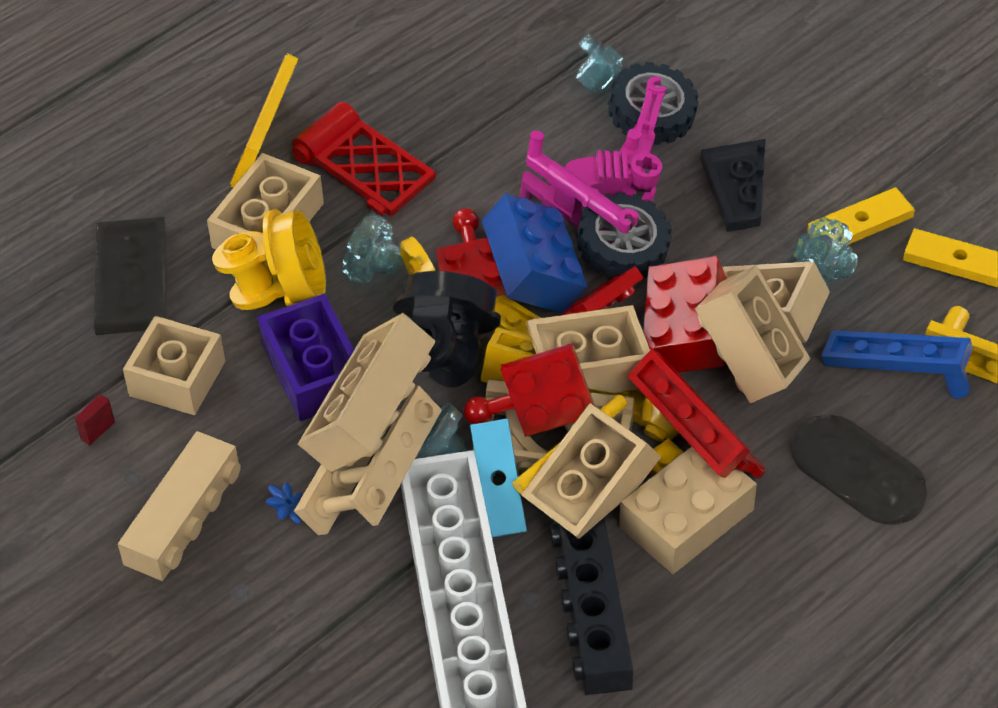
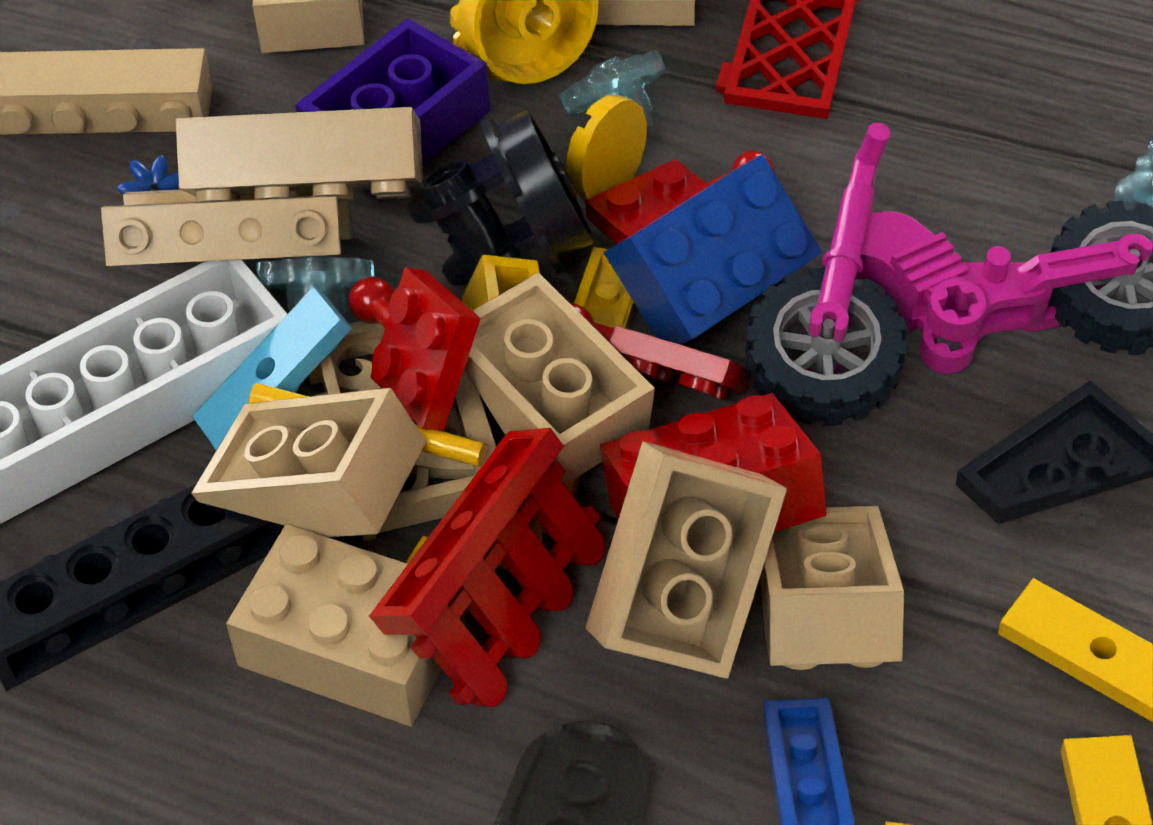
camera: 65 degrees right, 0 degrees up
(828, 248) = (971, 624): clear light blue plant -> none

